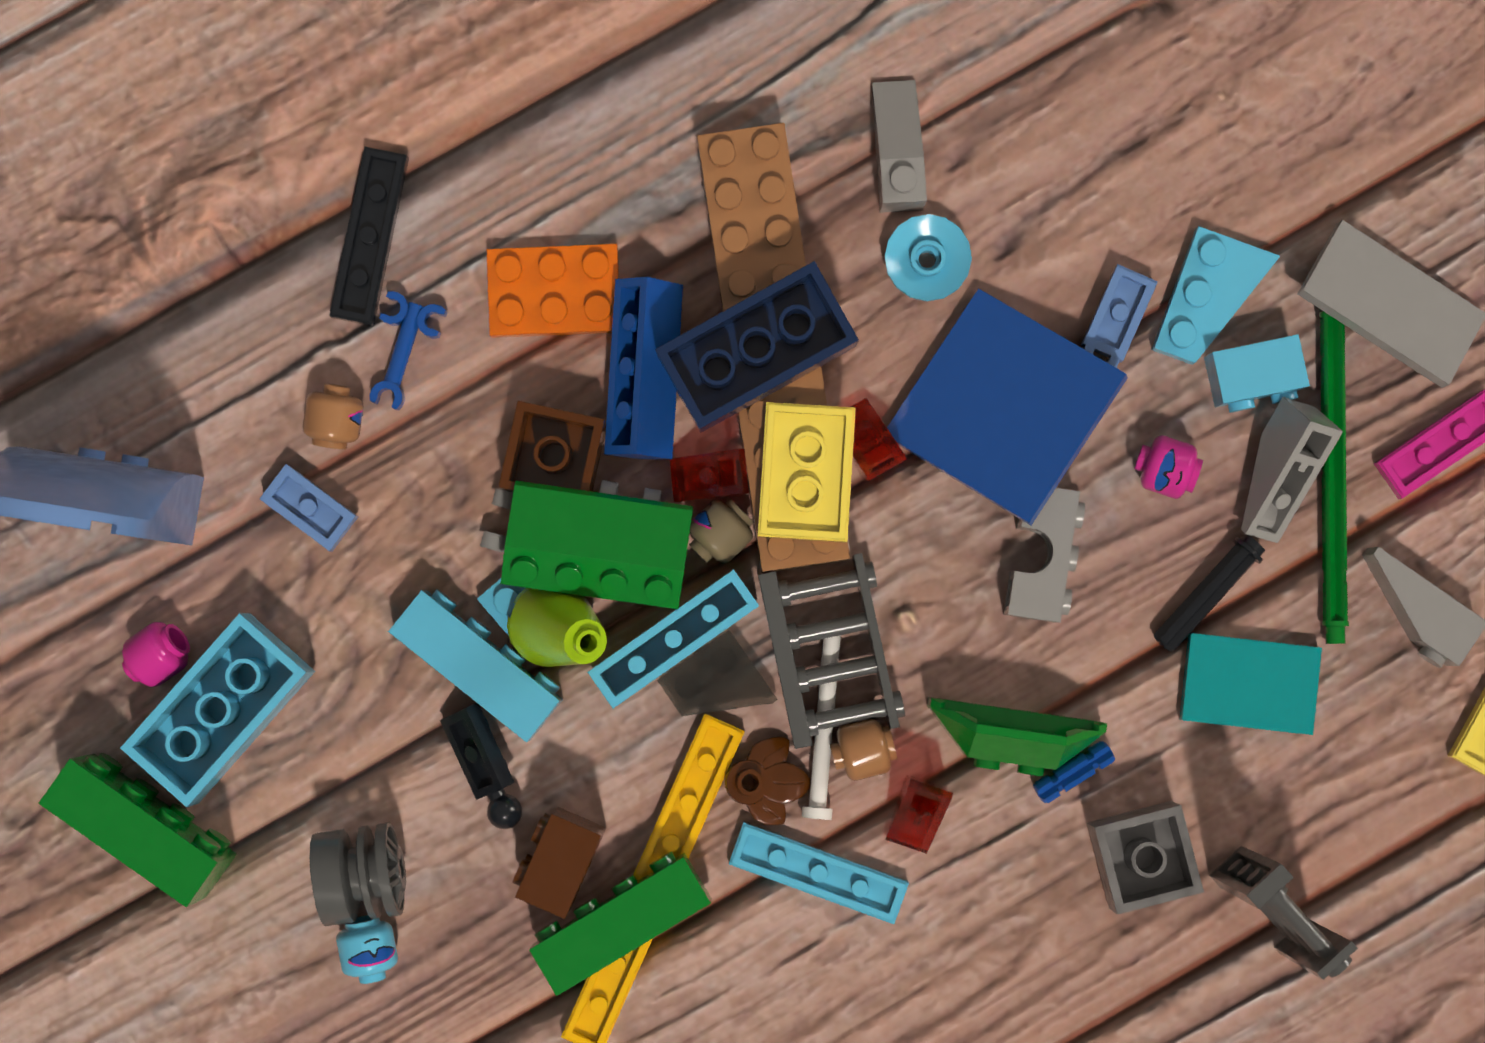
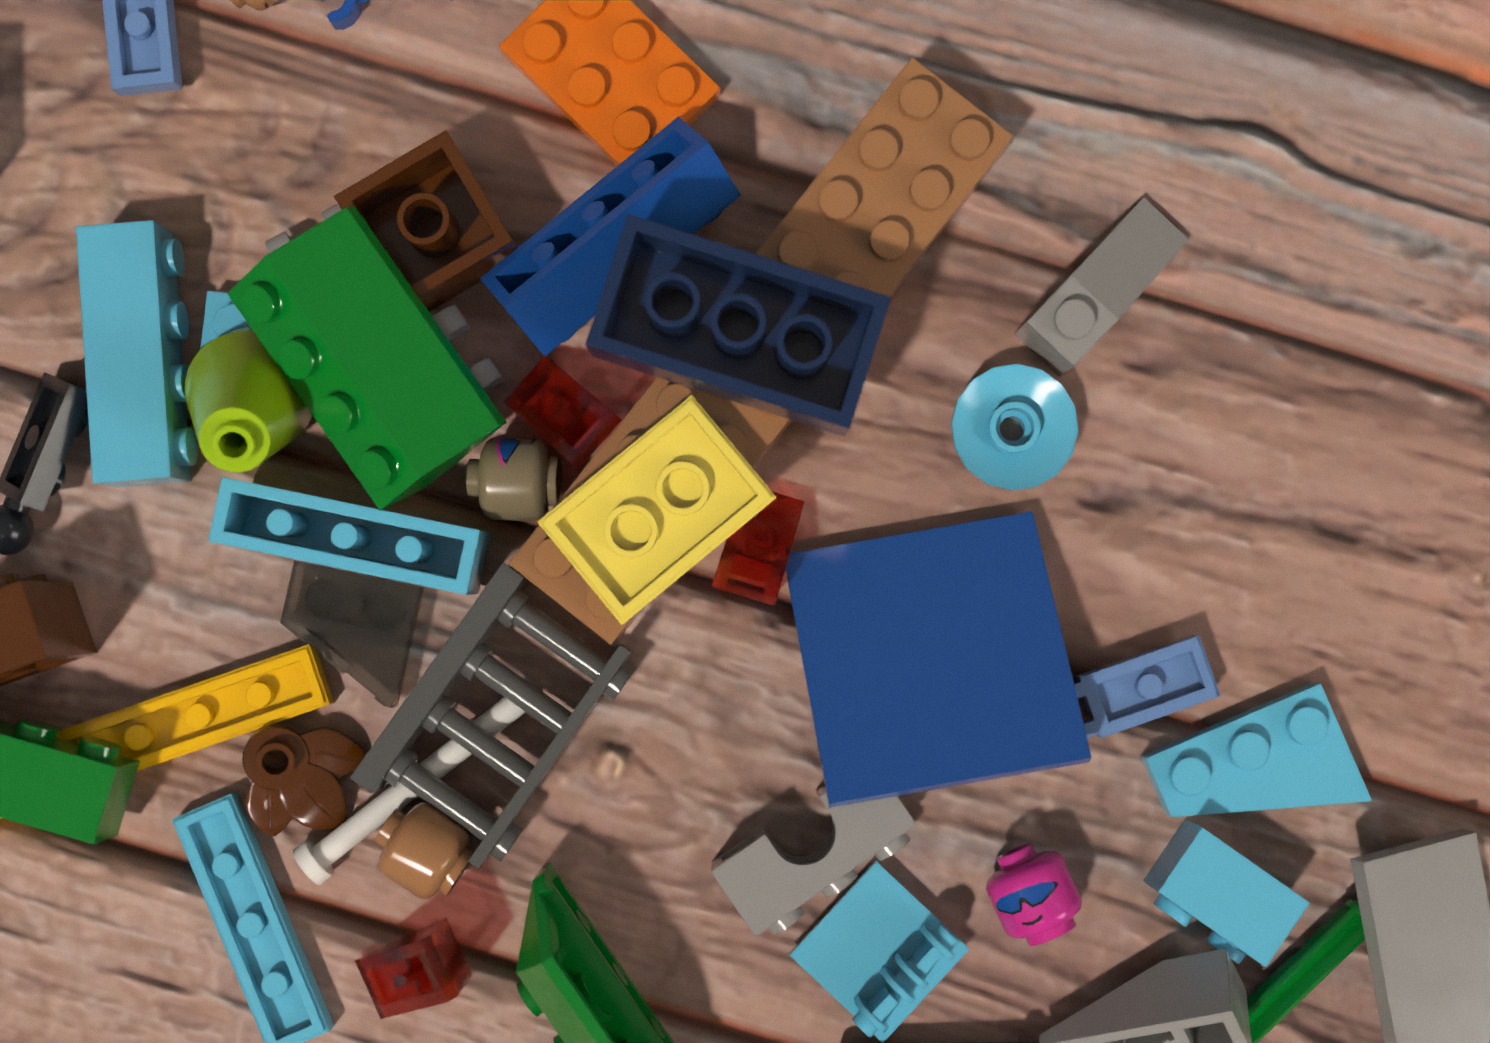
camera: 40 degrees right, 0 degrees up
(1126, 571) = (879, 952): none -> medium azure hinge

